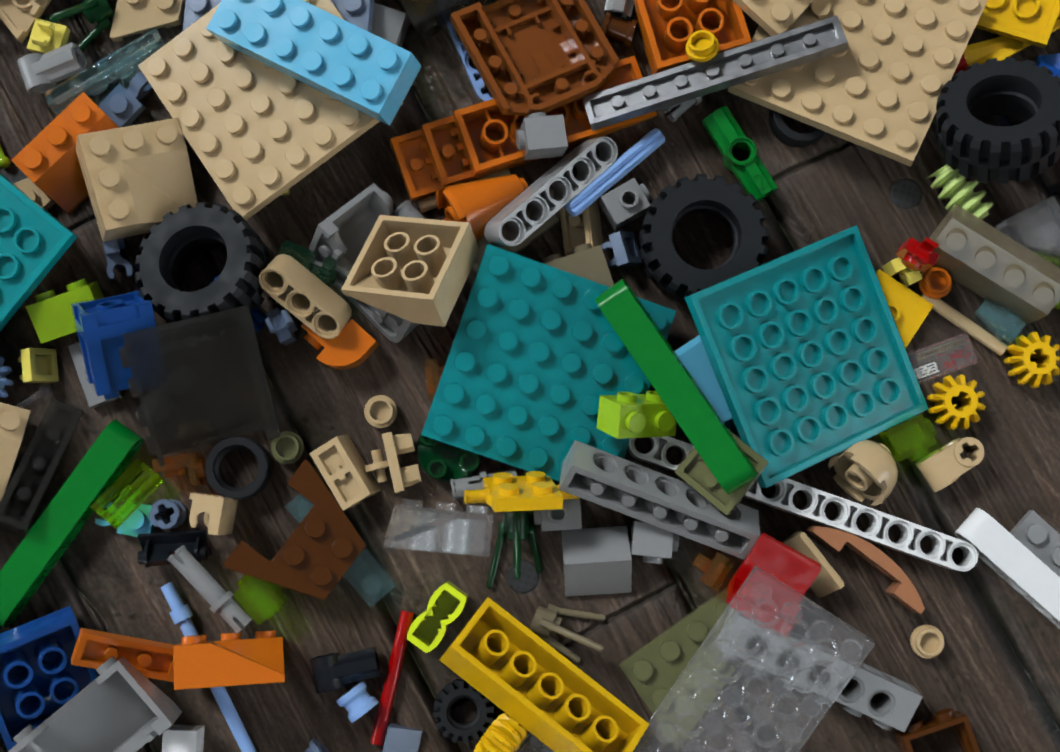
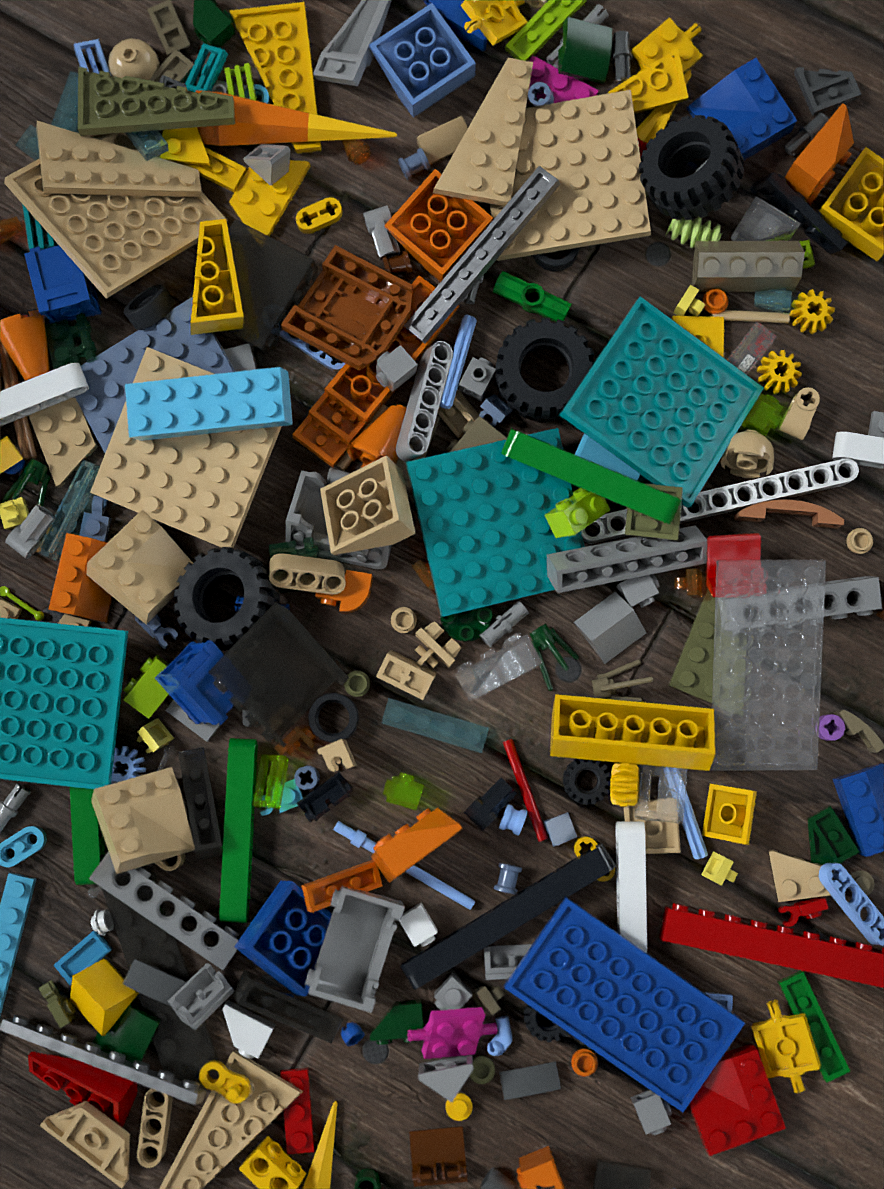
camera: 25 degrees left, 0 degrees up
(210, 589) = (370, 806): light grey pin -> none
(283, 325) = (302, 603): sand blue plate -> none
(315, 552) = (422, 739): reddish brown wing -> none
(432, 623) = (530, 737): neon yellow brick -> none
(519, 493) = (532, 612): yellow plate -> none
(560, 519) = (565, 611): light grey brick -> none
(702, 46) = (463, 242): yellow plate -> none
(828, 579) = (769, 541): tan slope -> none
(917, 254) = (693, 290): red plate -> none

